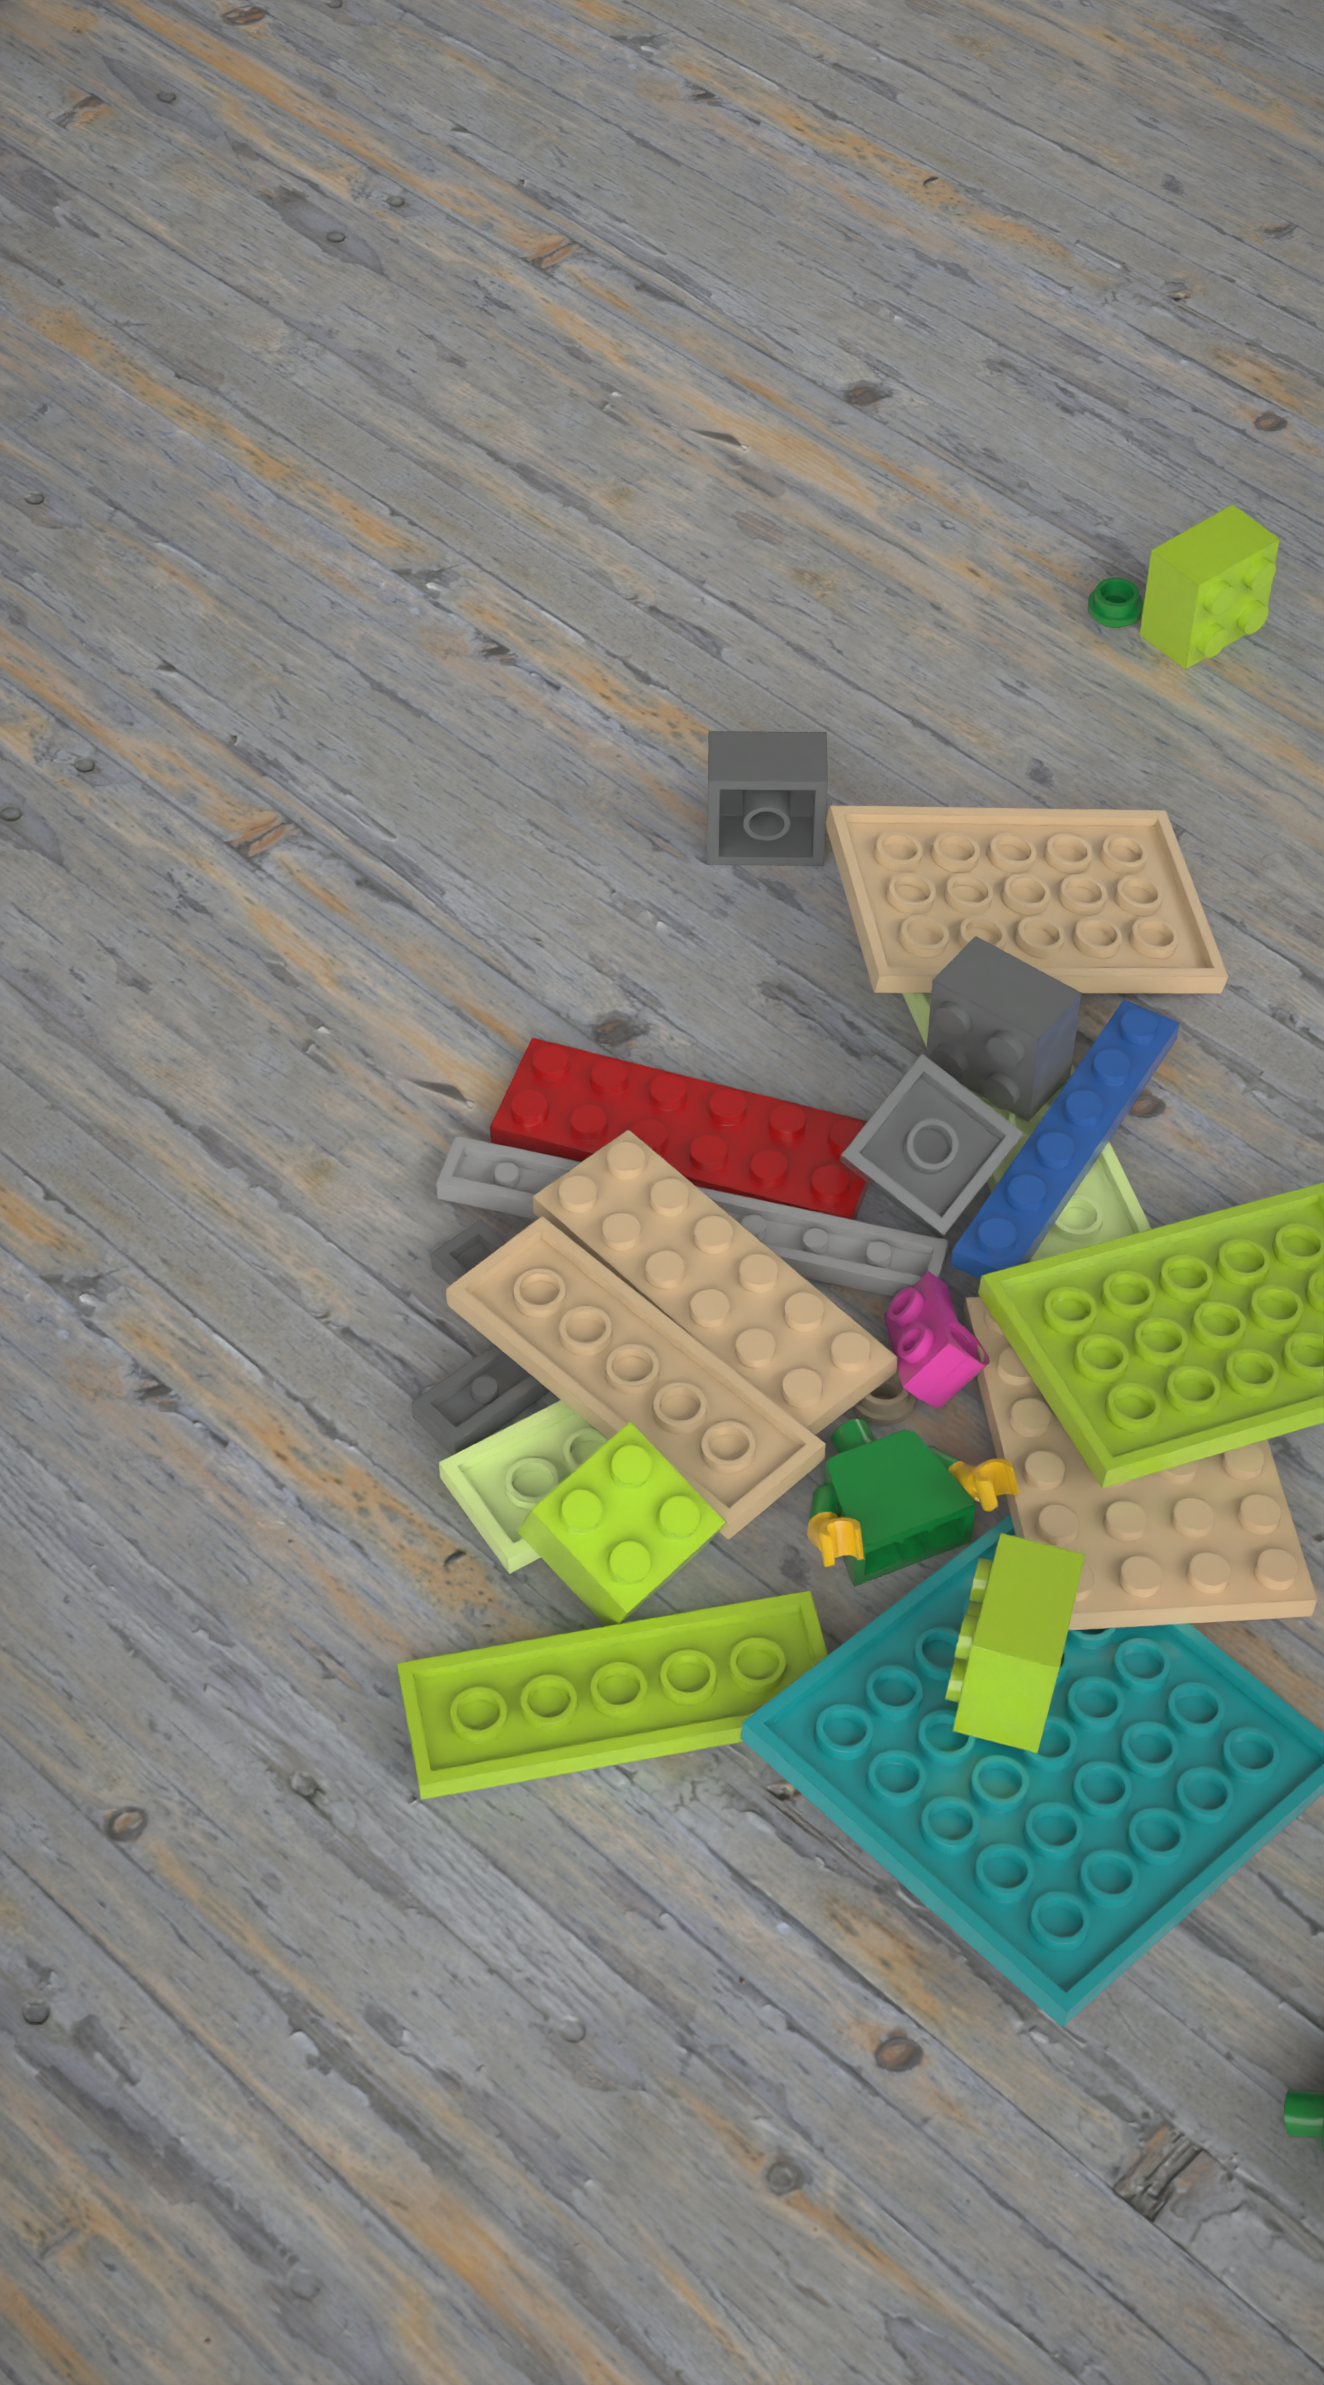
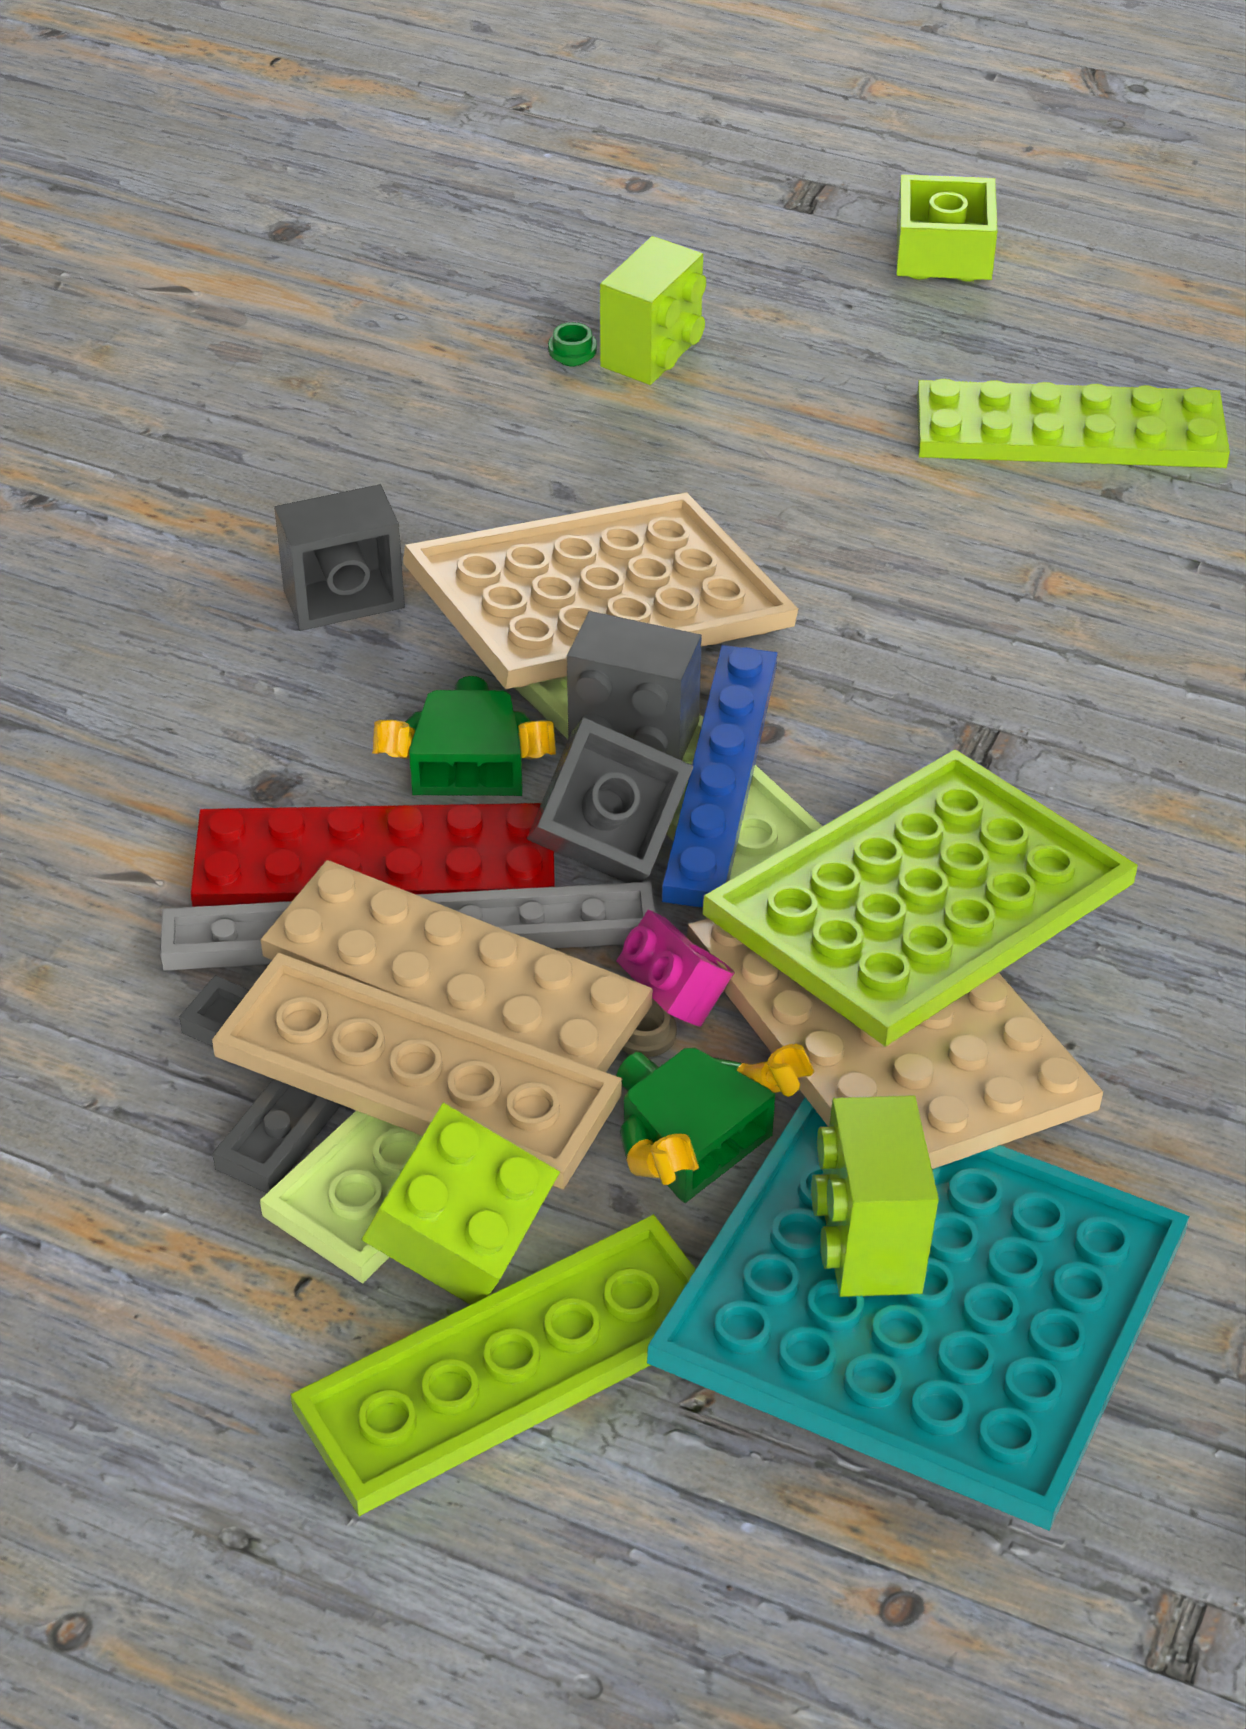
camera: 20 degrees left, 5 degrees down
(818, 1035) = (466, 742): none -> green torso

